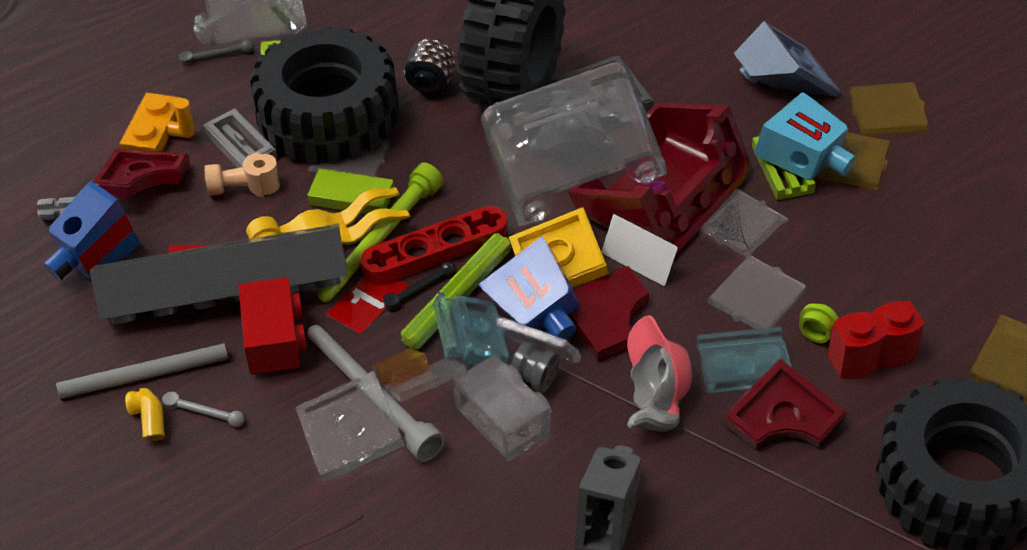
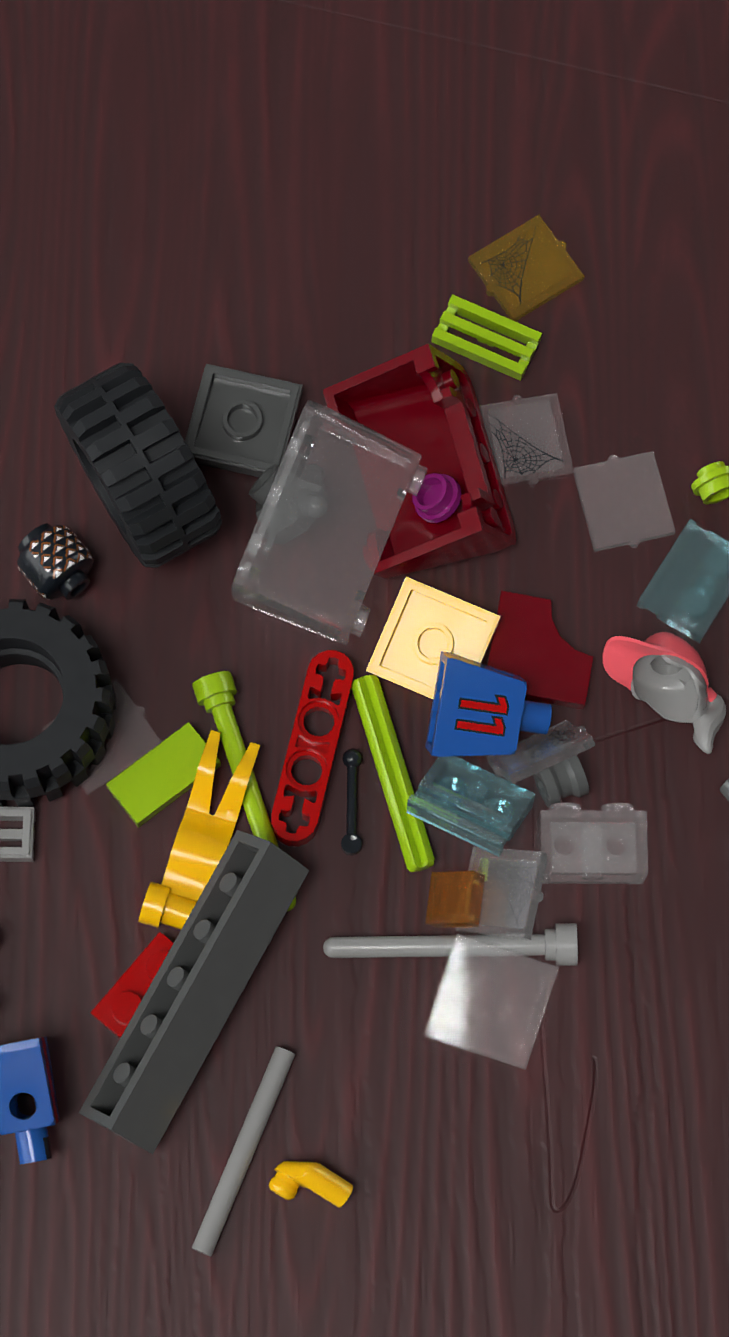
camera: 55 degrees left, 25 degrees up
(172, 401) = (305, 1146): light grey hinge -> none
(257, 173) = (61, 853): light nougat leg -> none
(269, 325) = (306, 988): red brick -> none
(363, 304) = (331, 874): red sticker -> none
(639, 249) = (493, 565): white sticker -> none
(783, 63) = (365, 220): sand blue slope -> none
(805, 140) = (494, 297): medium azure torso -> none
(888, 108) = (491, 174): clear yellow piece -> none

